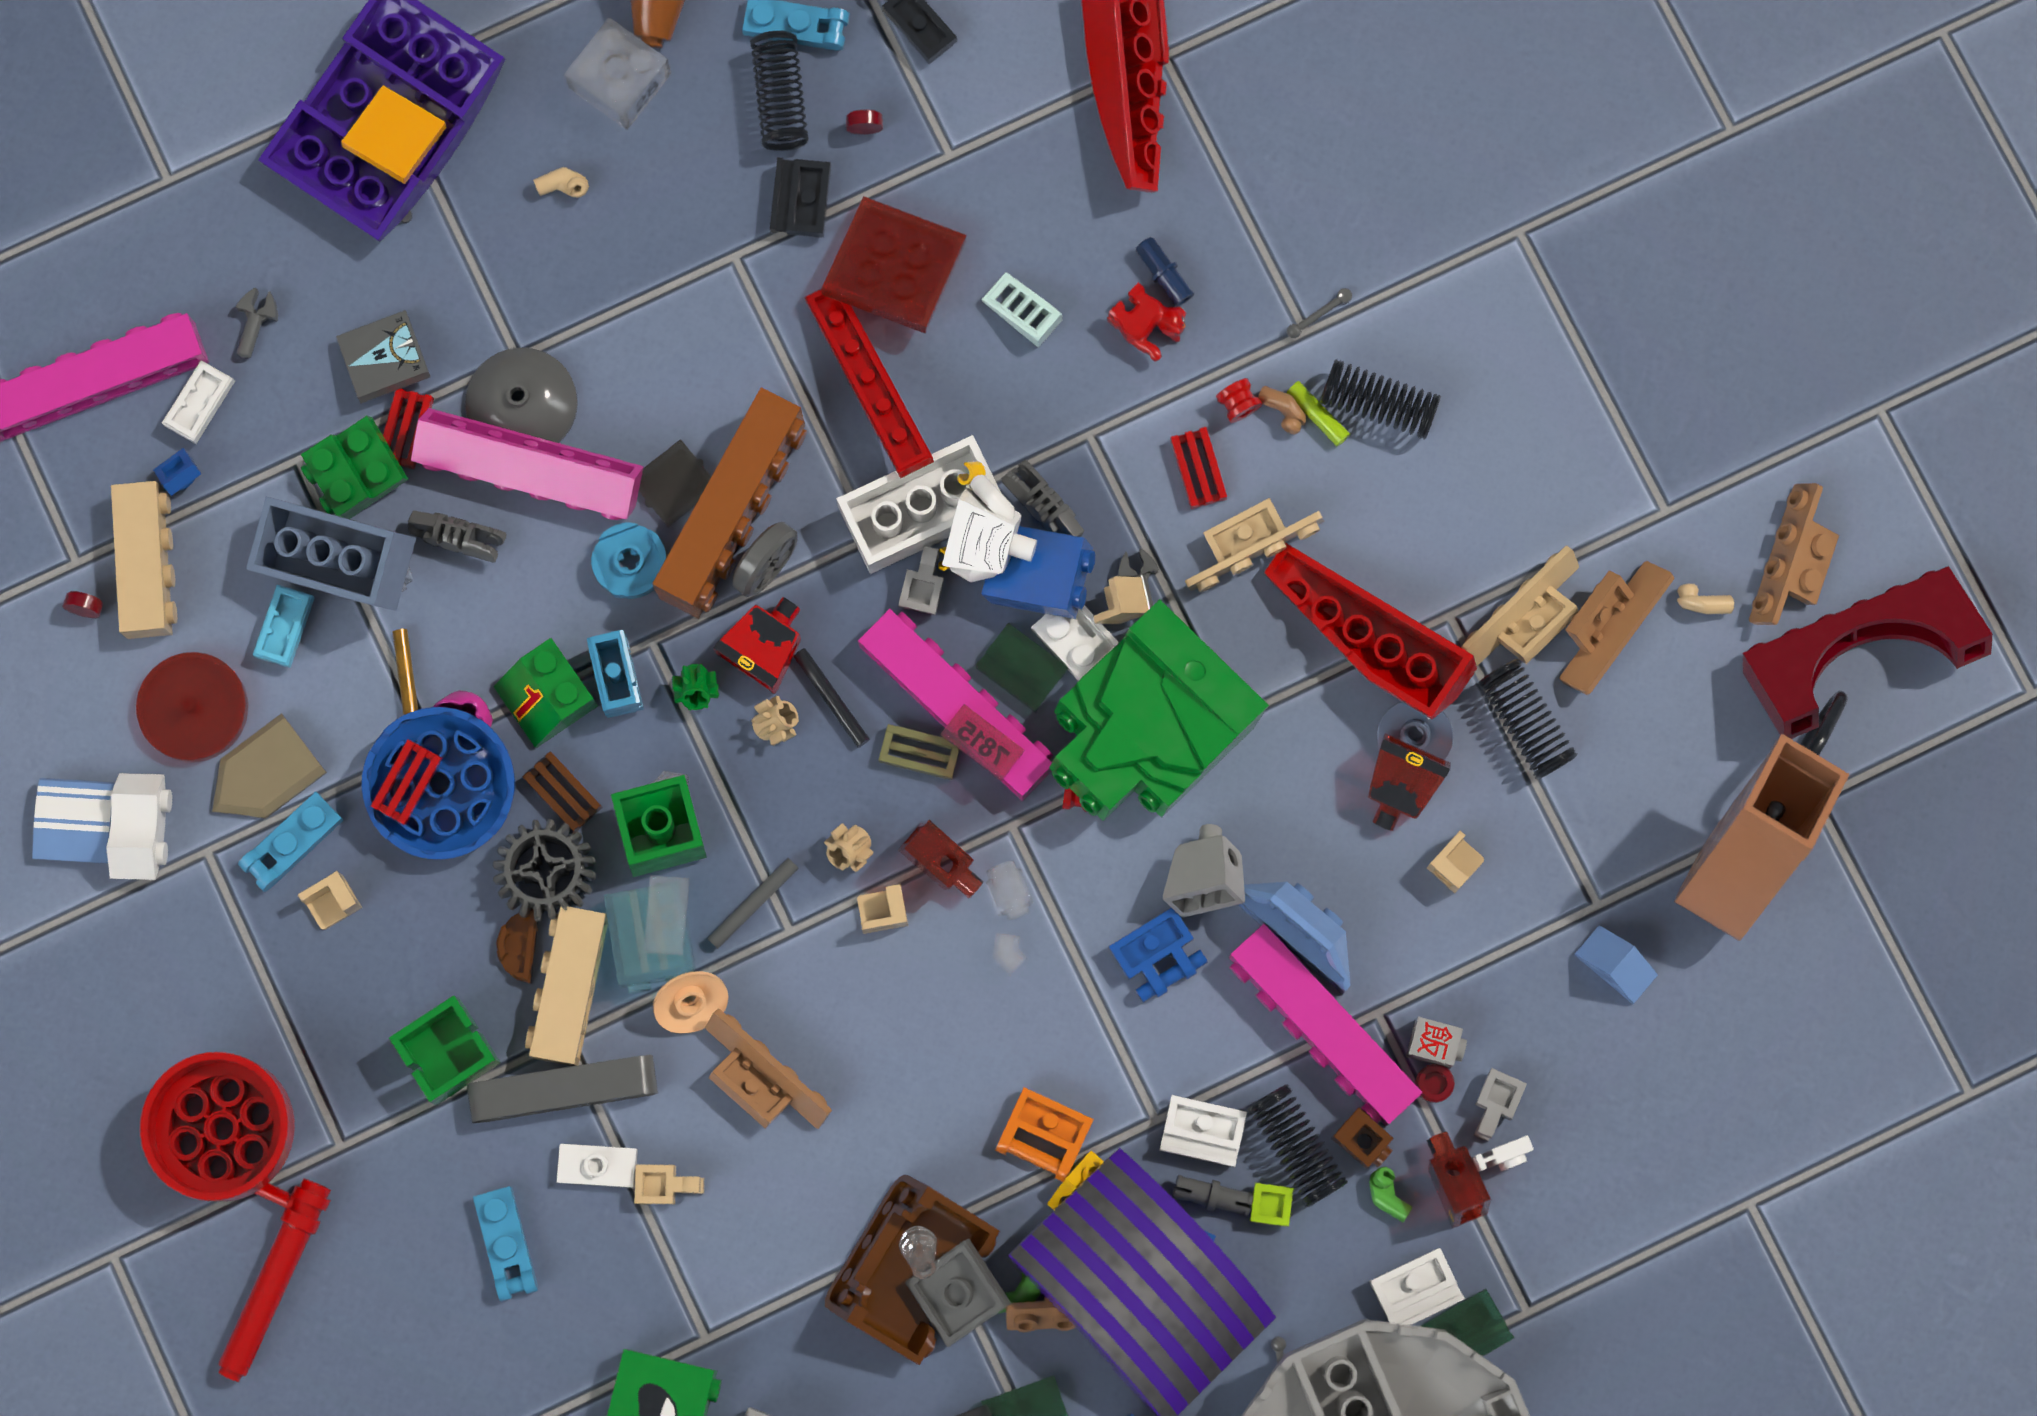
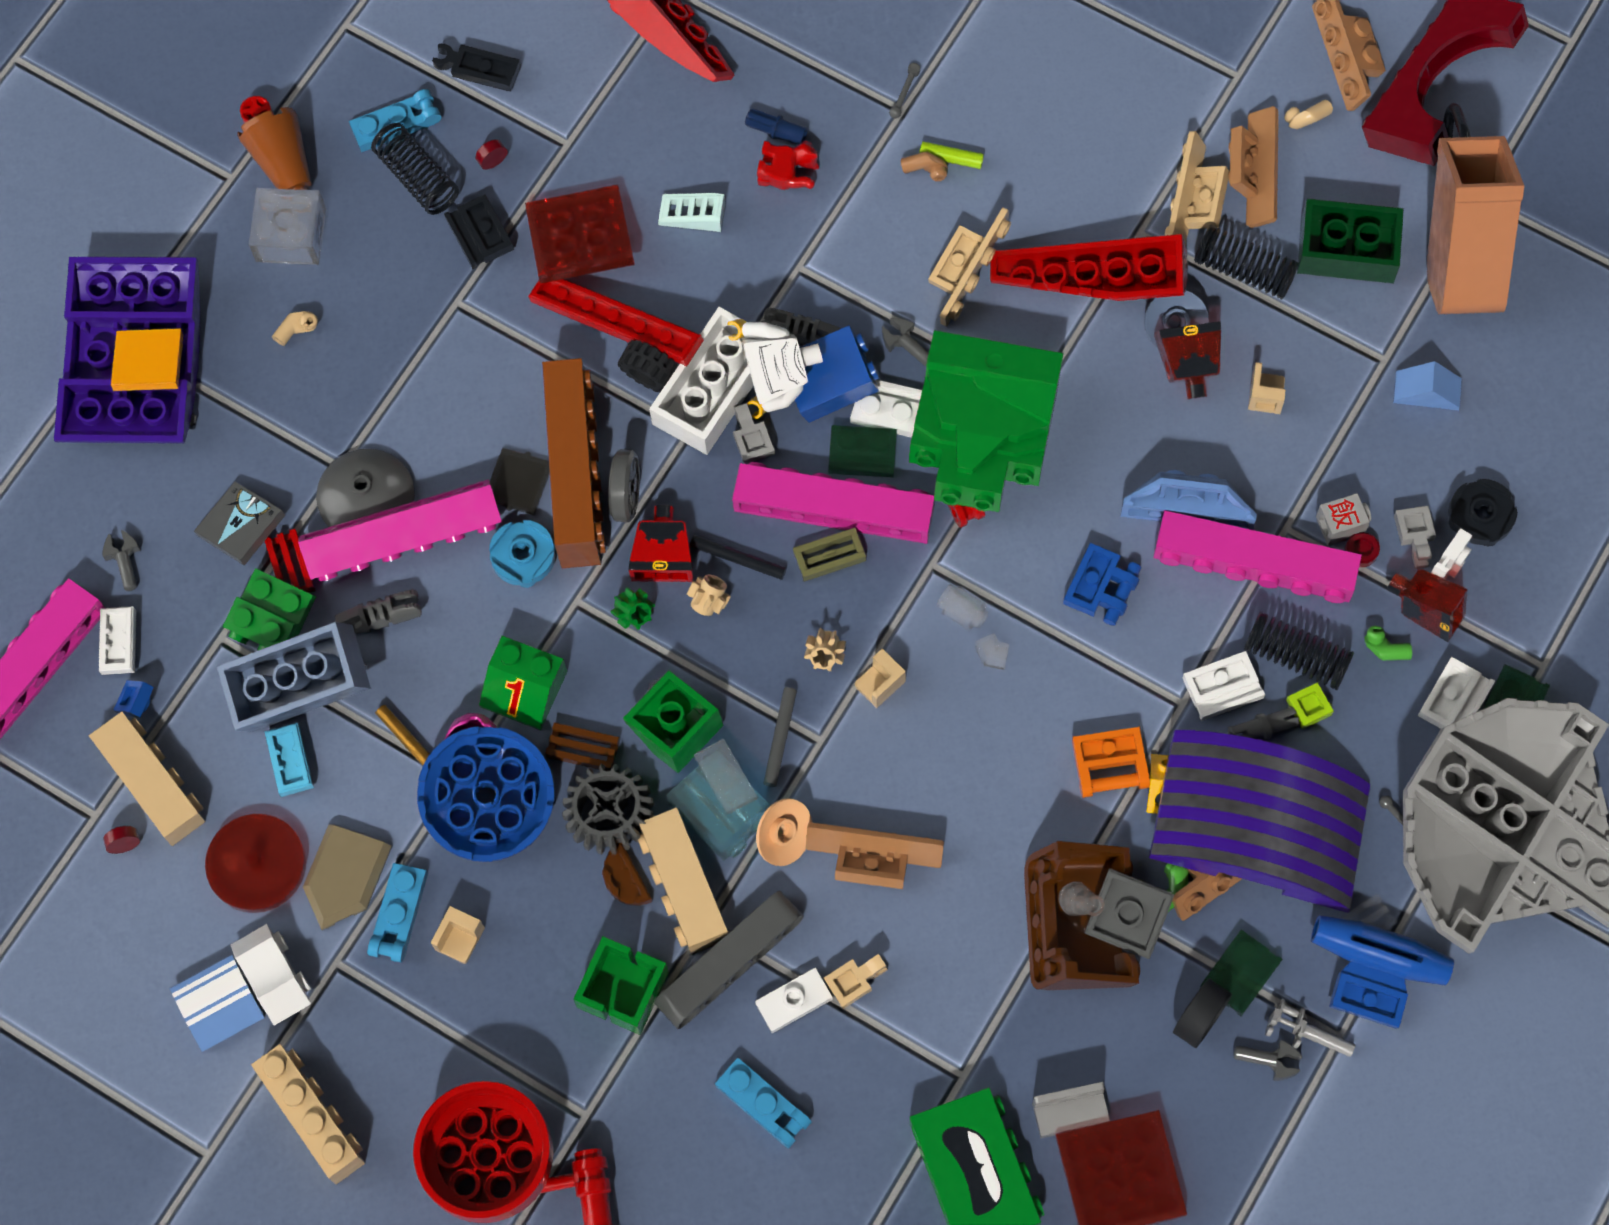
camera: 30 degrees left, 10 degrees down
(90, 981) = (307, 1113): none -> tan brick
(390, 810) = (460, 775): red tile -> none
(615, 673) = (566, 634): dark azure brick -> none
(867, 449) = (647, 365): none -> black tyre
(928, 846) = (897, 613): clear red torso -> none
(982, 742) = (873, 511): clear pink tile -> none
(1124, 600) = (904, 358): tan panel -> none
(1189, 438) = (898, 230): red tile -> none
(1205, 874) = (1098, 504): light grey torso -> none
(1239, 400) = (890, 177): red wheel -> none
(1333, 381) = (950, 128): black piece -> none
(1359, 1124) = (1342, 606): reddish brown brick -> none
(1570, 1145) = (1500, 506): none -> black plate
(1645, 765) = (1350, 241): none -> dark green brick

